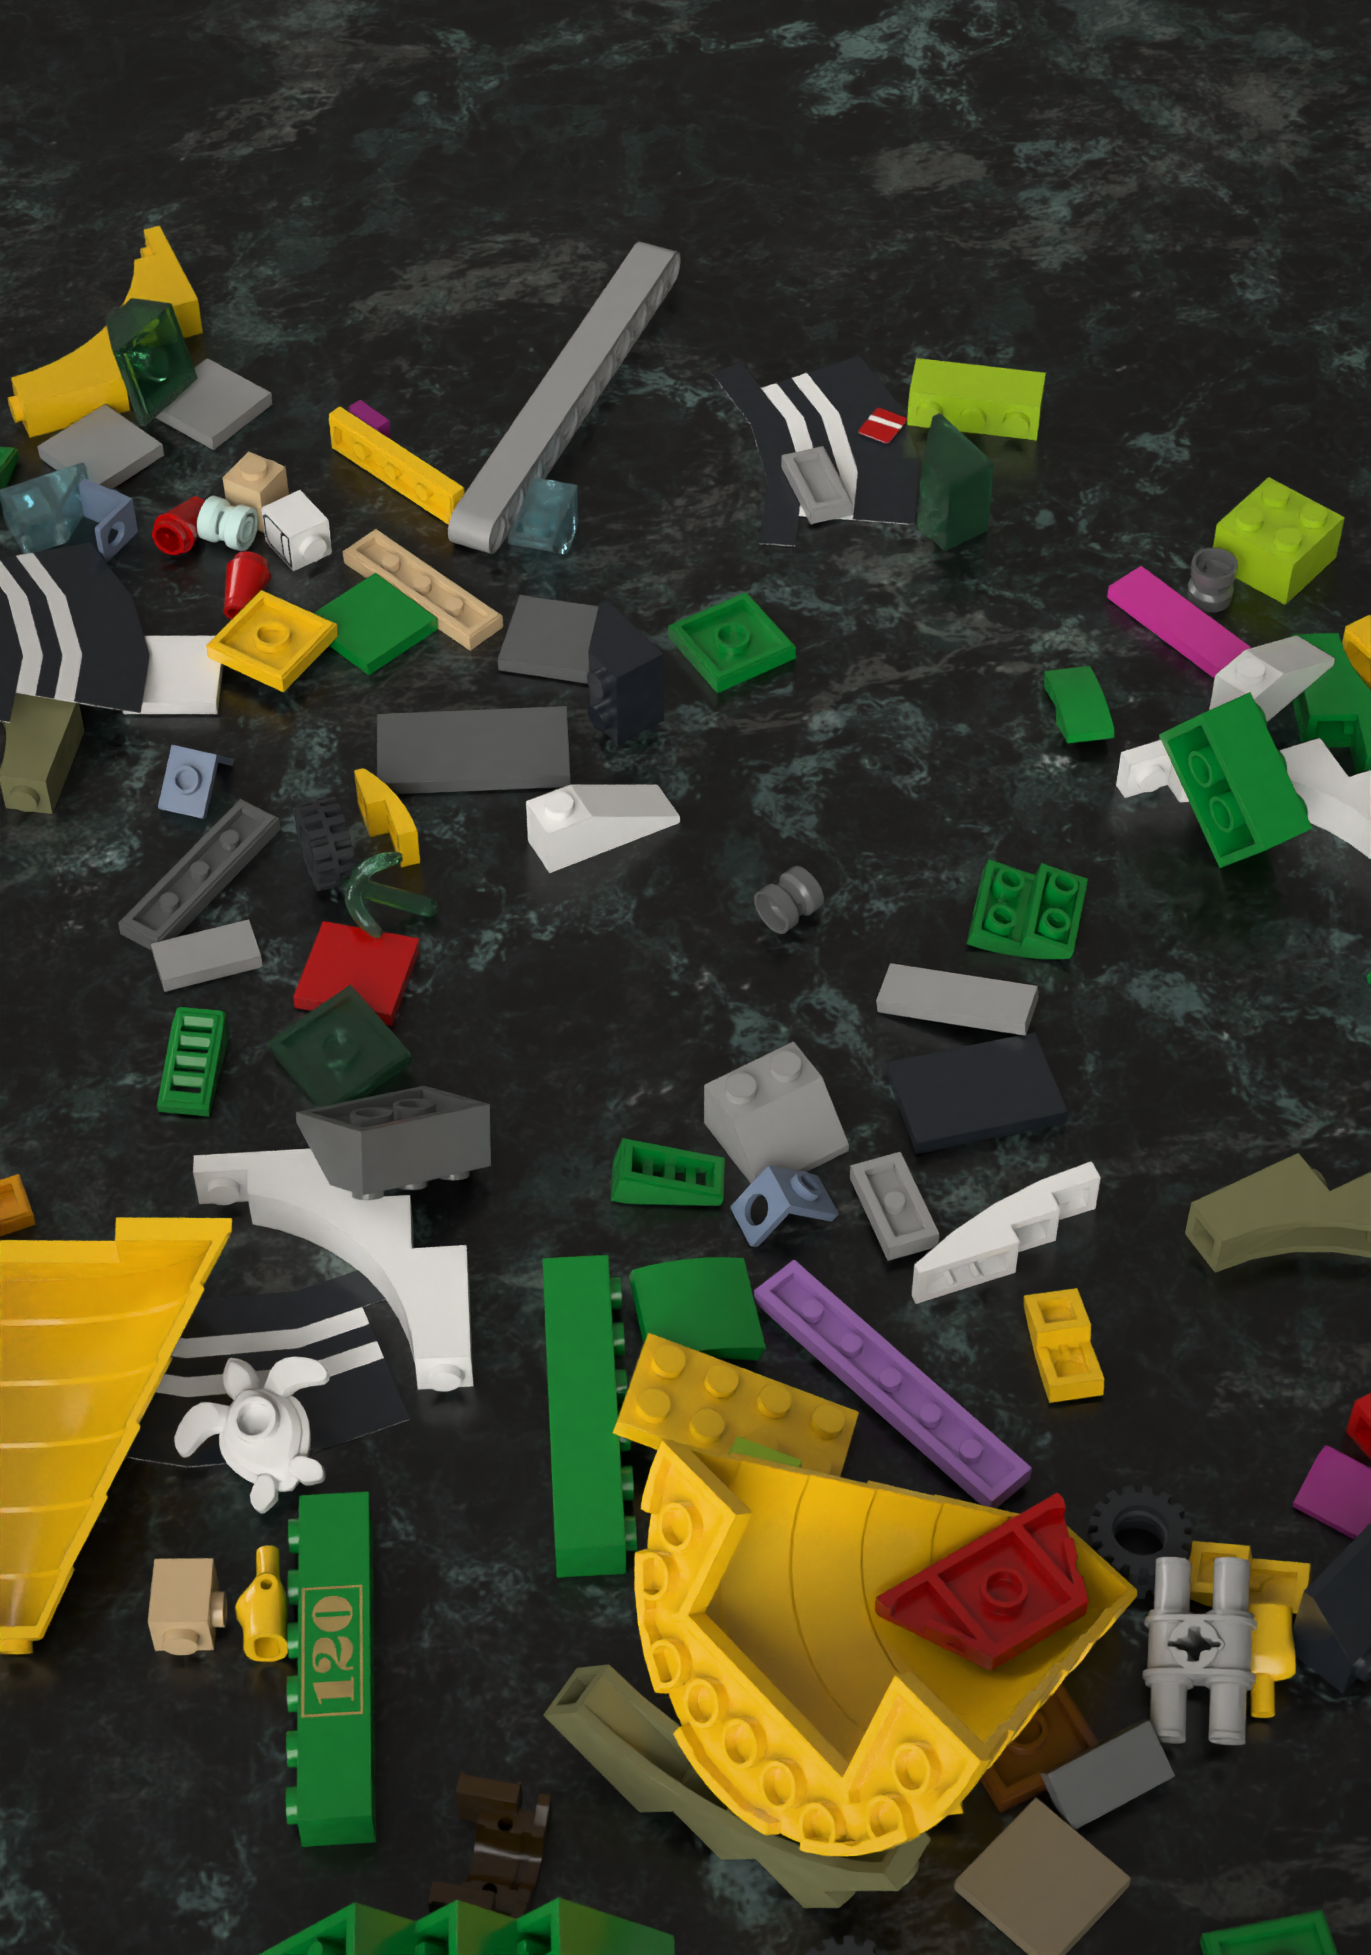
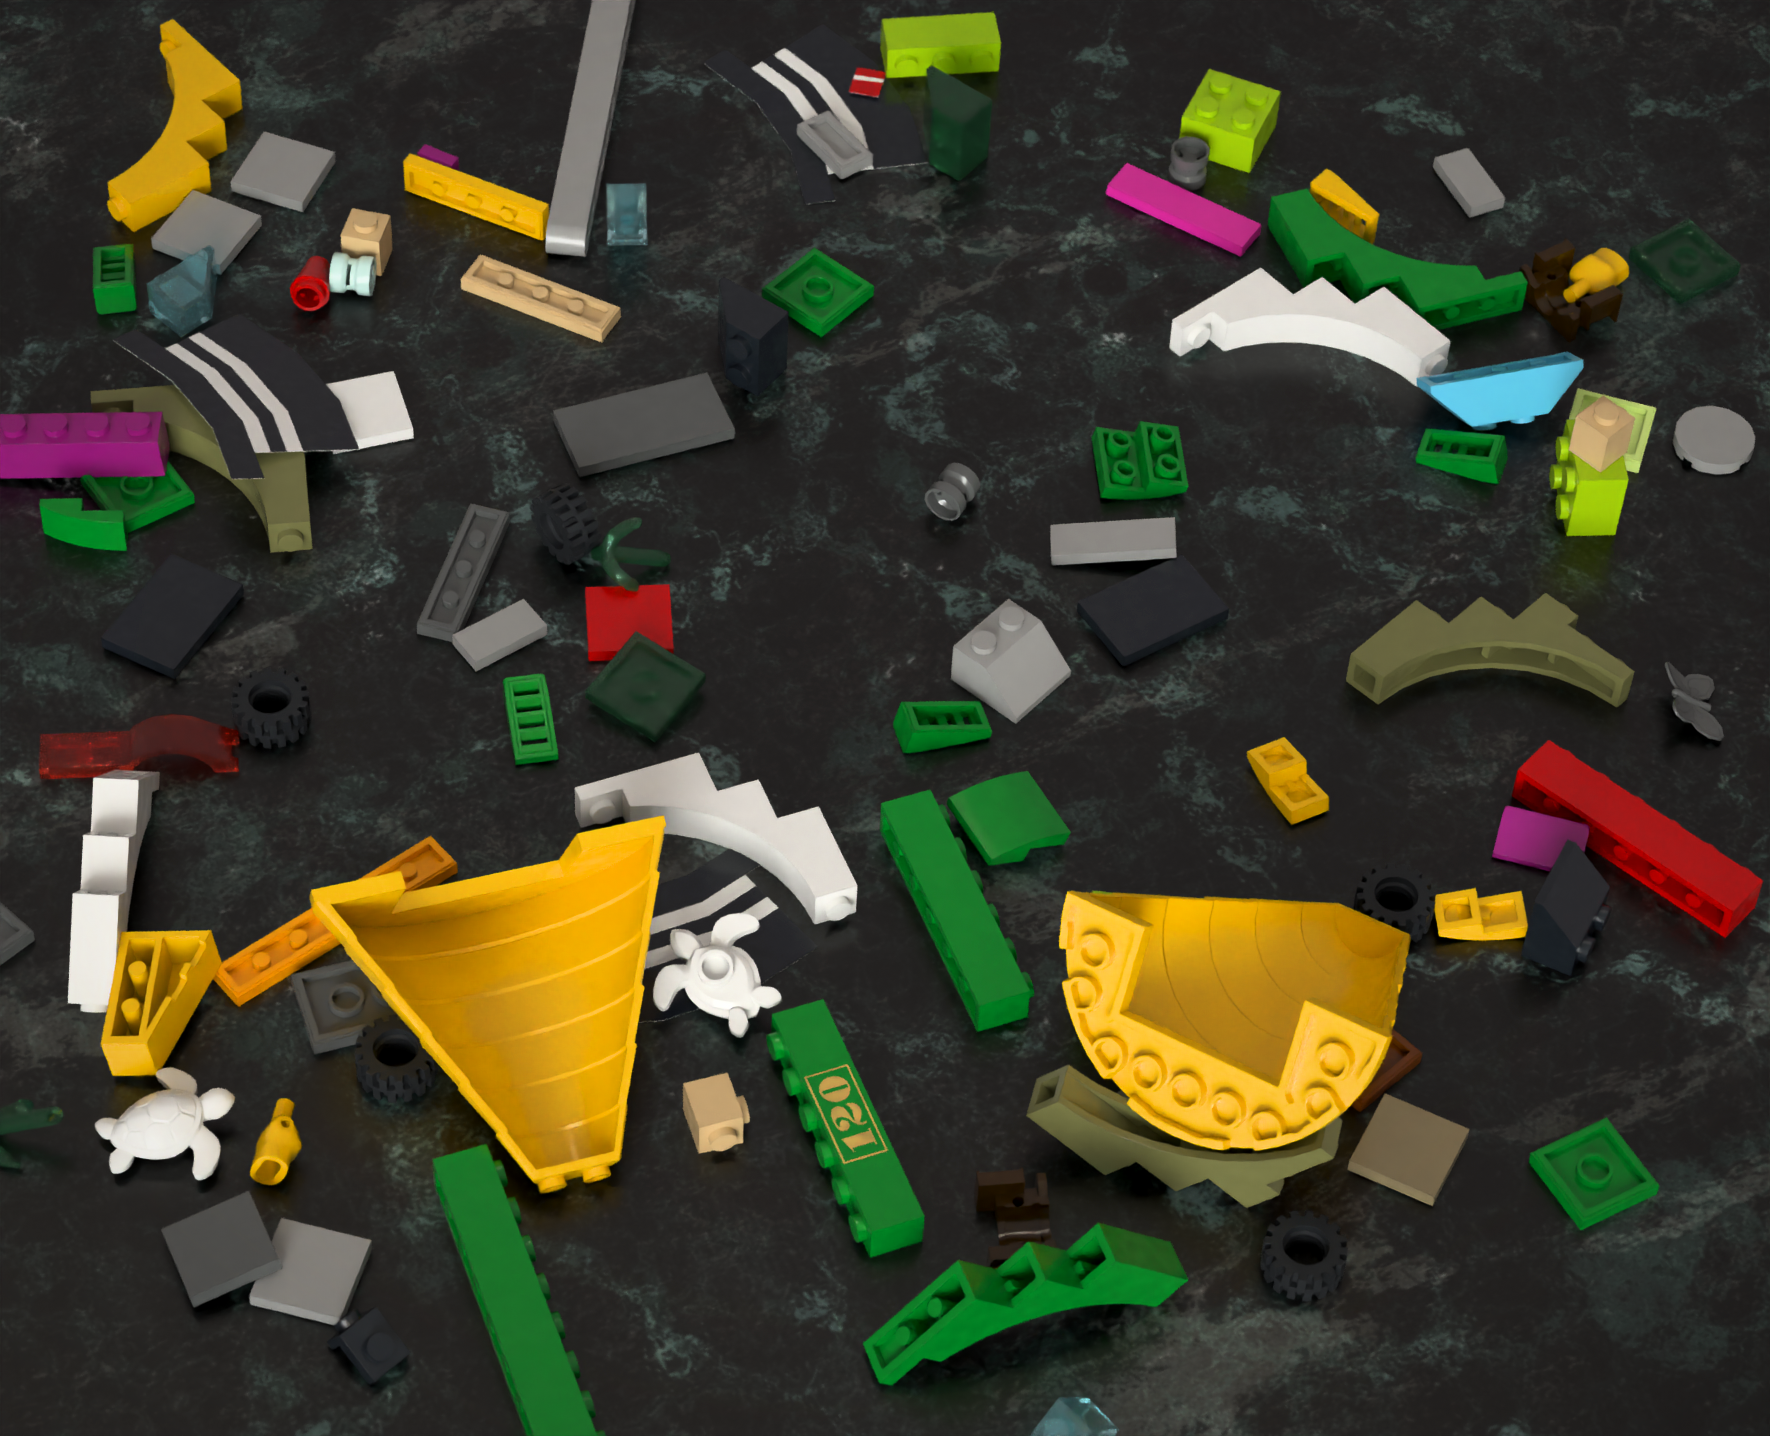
camera: 20 degrees left, 0 degrees up
(111, 511) = (244, 282): sand blue bracket -> none
(150, 355) = (227, 139): clear green slope -> none
(189, 781) = (423, 498): sand blue bracket -> none
(245, 578) = (391, 324): red cone -> none
(264, 1610) = (776, 1102): yellow piece -> none
(272, 641) = (439, 366): yellow tile -> none
(296, 530) = (415, 268): white brick -> none
(376, 623) = (511, 336): green tile -> none
(386, 814) = (601, 489): yellow slope -> none
(398, 1140) = (733, 739): dark grey slope -> none
(549, 639) = (670, 318): dark grey tile -> none
(594, 819) = (768, 461): white slope -> none
(712, 1402) = (1033, 879): yellow plate -> none
(785, 1193) = (1044, 716): sand blue bracket -> none
(893, 1386) = (1171, 835): medium lavender plate -> none
(894, 1206) = (1125, 707): light grey plate -> none
(991, 1240) = (1212, 713): white slope -> none
(996, 1591) = (1314, 956): red wing -> none
(1079, 704) = (1120, 286): green slope -> none
(1107, 1774) = (1429, 1065): dark grey tile -> none
(1222, 1669) = (1489, 965): light grey pin -> none
(1236, 780) = (1275, 324): green brick -> none
(1271, 673) = (1267, 241): white slope -> none
(1271, 1654) = (1508, 957): yellow piece -> none

